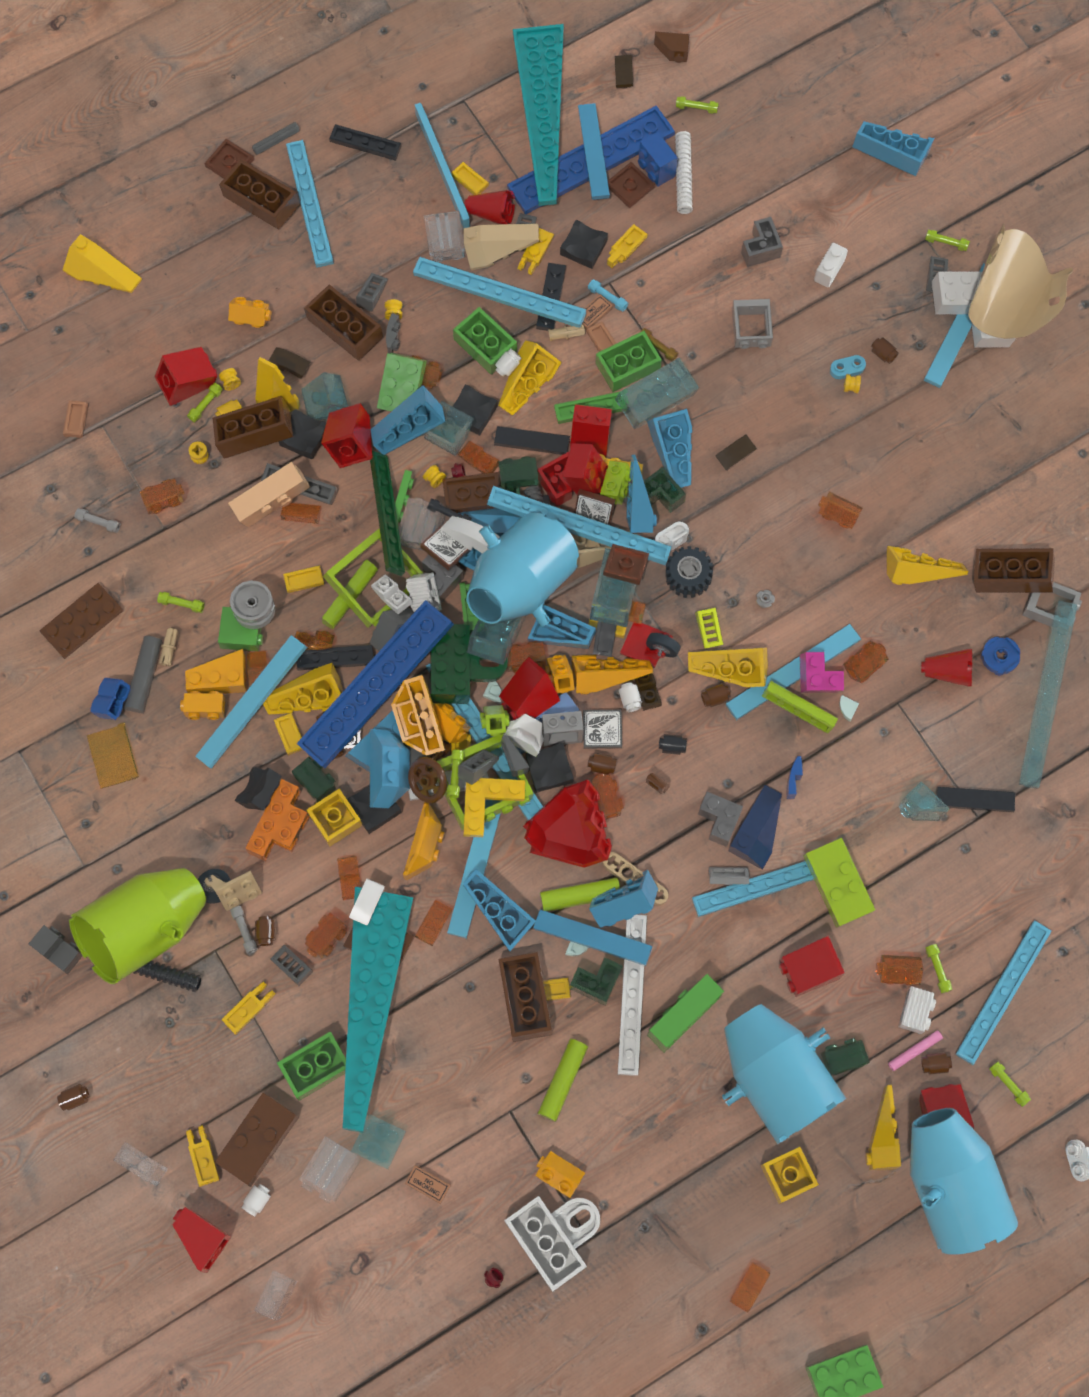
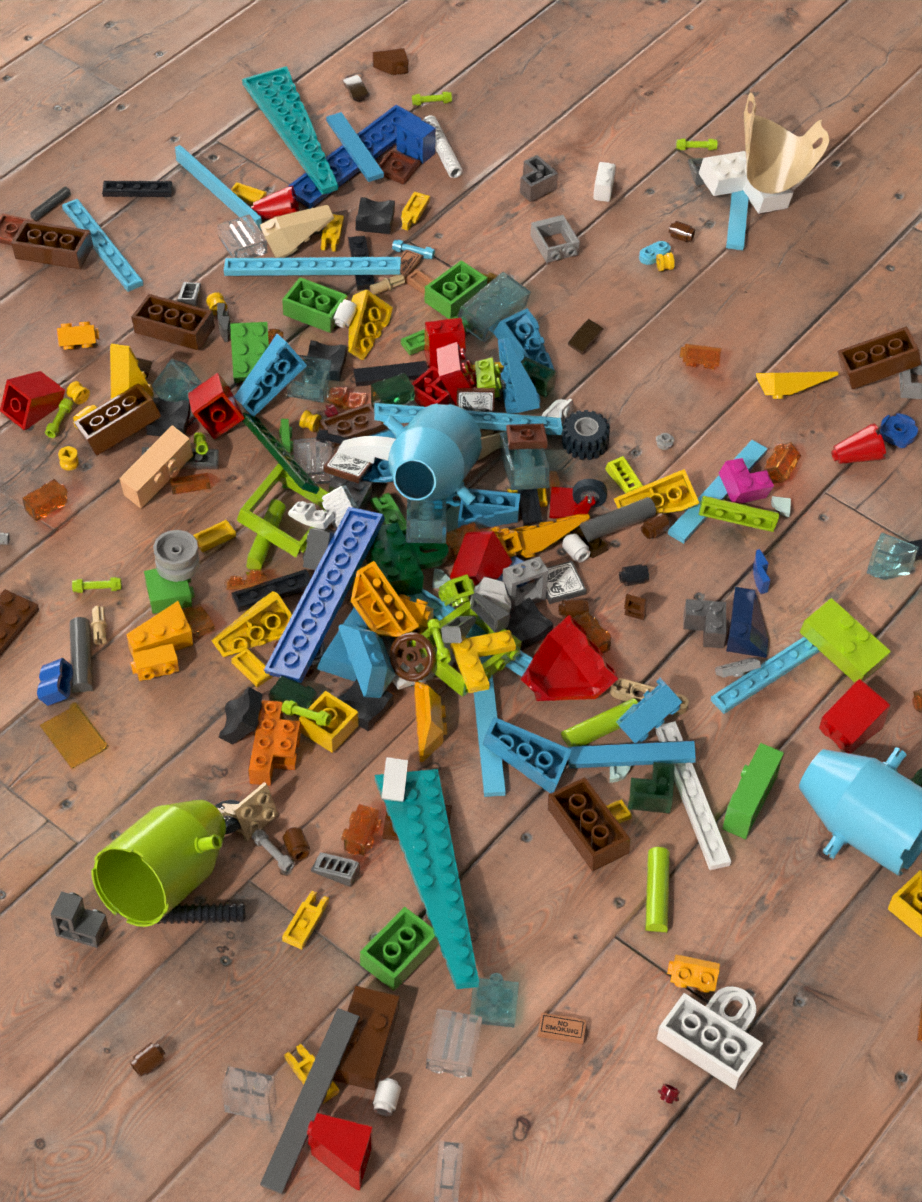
camera: 20 degrees left, 20 degrees down
(189, 1185) = (309, 1101): none -> dark grey tile
(251, 702) = (203, 646): medium azure tile -> none
(319, 481) = (199, 441): none -> lime bar
(324, 819) = (321, 718): none -> lime bar
(349, 876) = (363, 773): clear orange slope -> none
(433, 923) = (466, 788): clear orange slope -> none
(680, 680) = (618, 519): none -> dark grey brick
(893, 147) = (617, 88): dark azure wedge -> none

